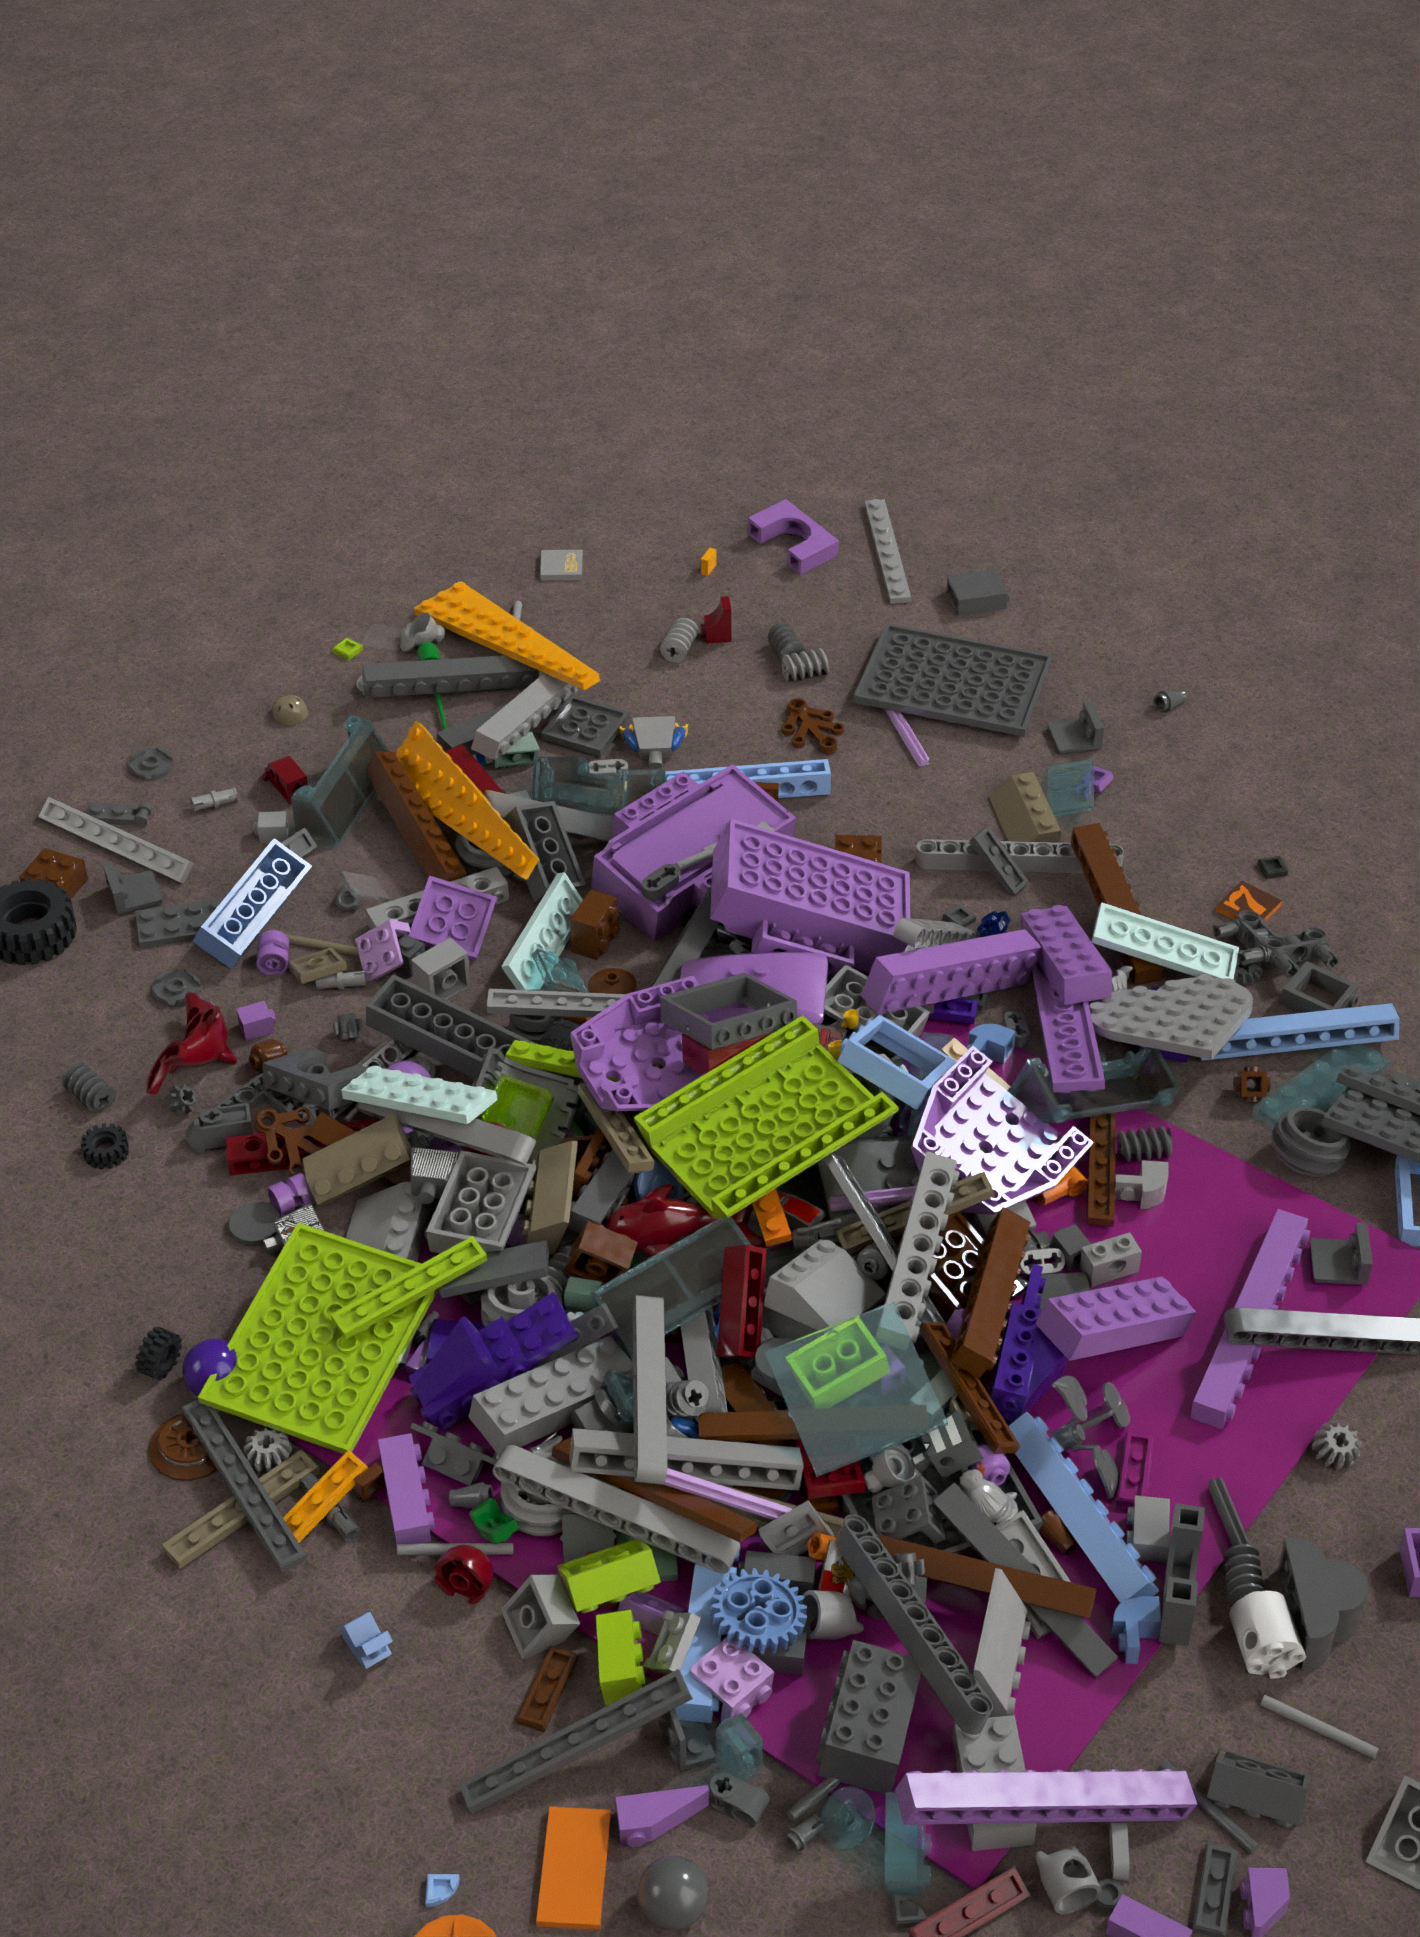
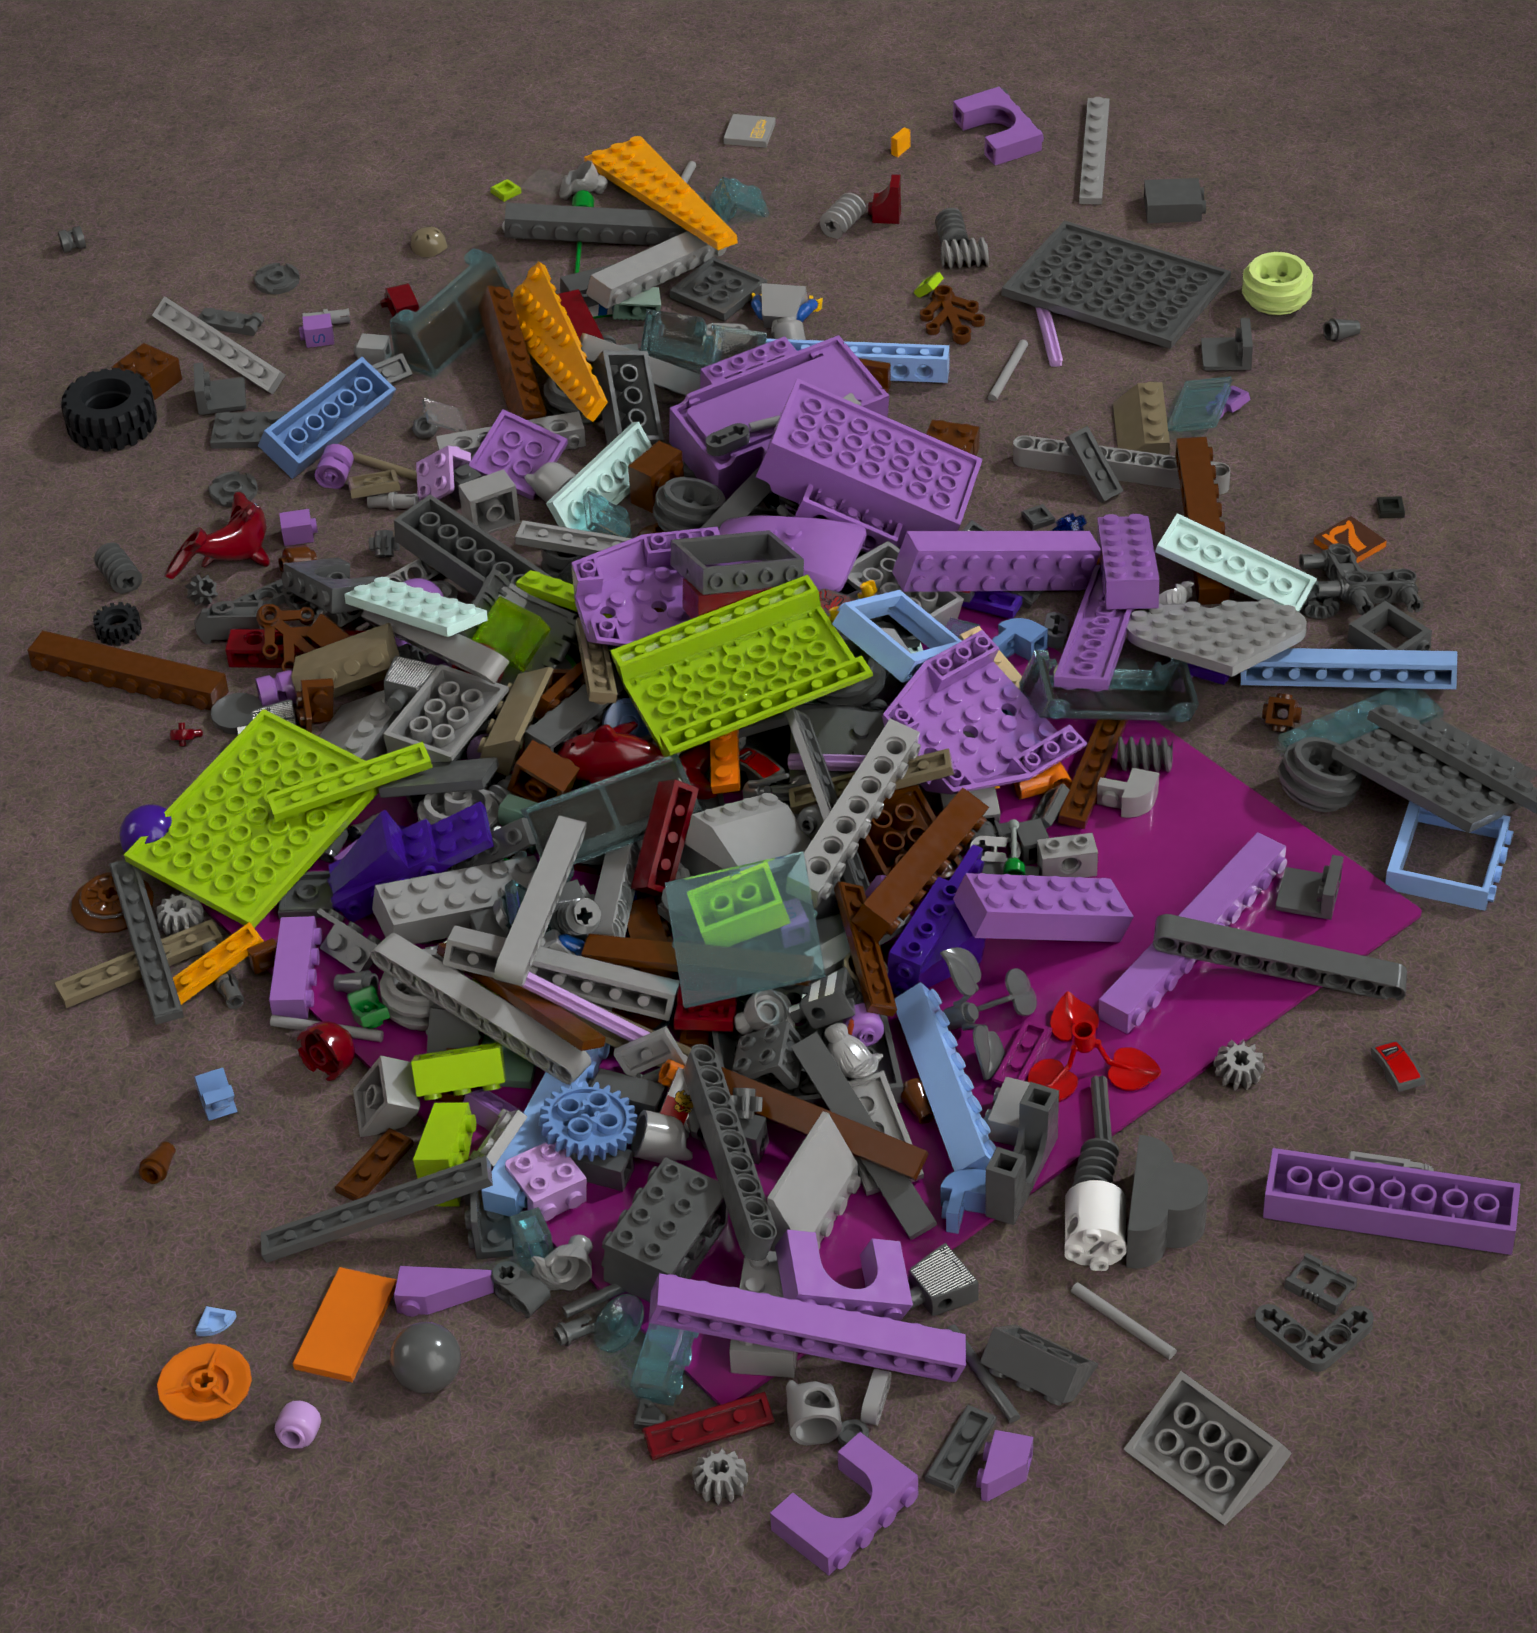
camera: 15 degrees right, 0 degrees up
(131, 1195) = (127, 670): none -> reddish brown brick
(158, 1353) = (103, 813): black tyre -> none
(209, 1254) = (184, 734): none -> dark red piece
(210, 813) = (317, 330): none -> medium lavender brick
(328, 1726) = (157, 1163): none -> reddish brown cone
(336, 1205) = (314, 702): none -> reddish brown bracket
(394, 1411) = (307, 896): none -> dark grey tile
(494, 942) = (549, 479): none -> light grey piece
(569, 632) = (732, 195): none -> clear light blue bracket
(635, 952) = (686, 503): none -> dark grey wheel
(669, 760) = (789, 328): none -> light grey head
(778, 1766) = (566, 1265): none -> light grey hair
(781, 699) = (928, 284): none -> lime tile
(881, 777) = (1008, 370): none -> light grey bar
(930, 933) = (972, 517): light grey beam -> none
(1030, 1748) = (883, 1271): none -> medium lavender arch
(1066, 1278) = (1013, 865): none -> hinge
(1075, 1208) = (1050, 805): none -> dark grey plate
(1101, 663) = (1277, 283): none -> yellowish green wheel
(1139, 1719) = (942, 1282): none -> dark grey torso
(1171, 1423) = (1078, 1022): none -> red plant

